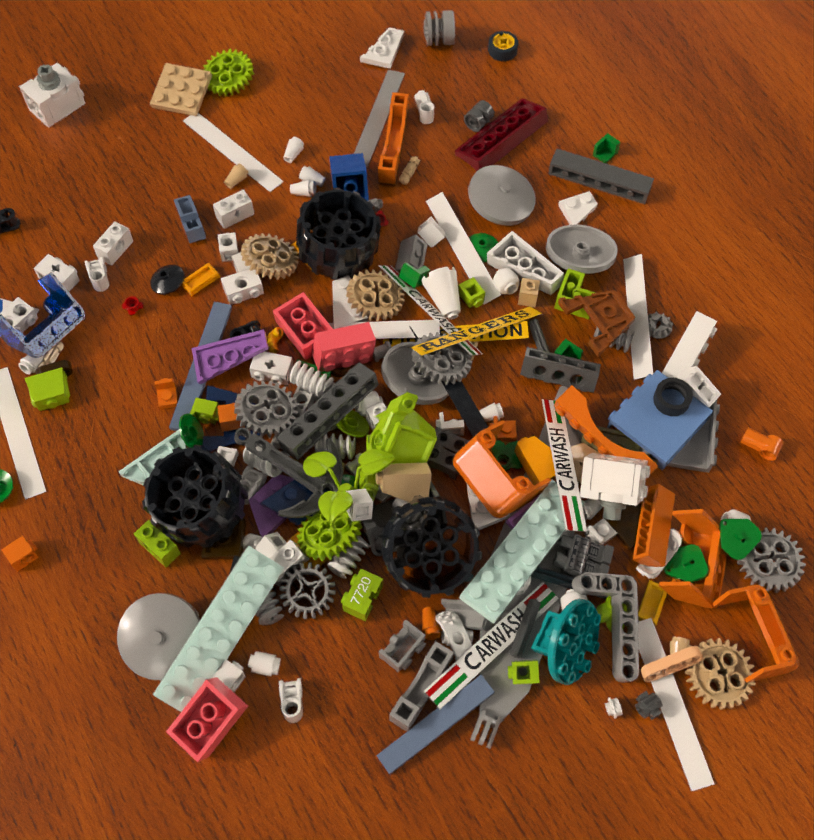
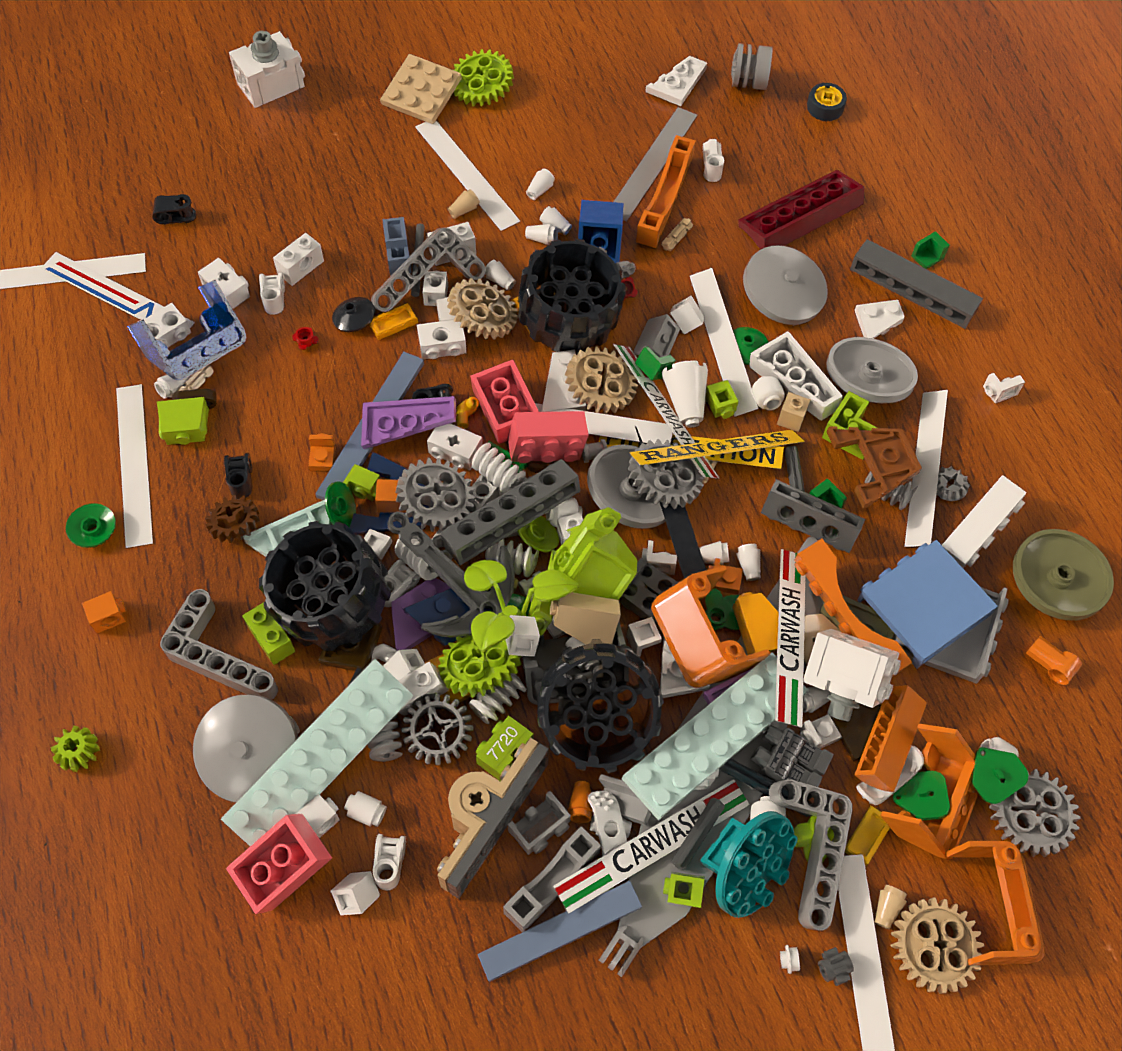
camera: 10 degrees right, 0 degrees up
(13, 668) = (73, 759): none -> lime gear
(103, 421) = (239, 471): none -> black piece
(107, 459) = (232, 519): none -> reddish brown gear
(115, 571) = (210, 656): none -> light grey beam
(208, 225) = (419, 239): none -> dark grey bar
(216, 230) = (417, 257): none -> light grey beam
(271, 729) = (355, 893): none -> white panel
(276, 227) = (498, 274): none -> white cone
(356, 646) = (483, 809): none -> piece
(450, 485) = (643, 635): none -> white panel
(479, 115) = (778, 182): dark grey wheel -> none
(520, 413) = (750, 561): none -> white cone
(671, 663) = (876, 919): light nougat beam -> none
(676, 384) = (958, 564): black tyre -> none
(682, 246) = (1002, 390): none -> white bracket
(701, 386) = (984, 570): white brick -> none
(756, 377) = (1063, 574): none -> olive dish

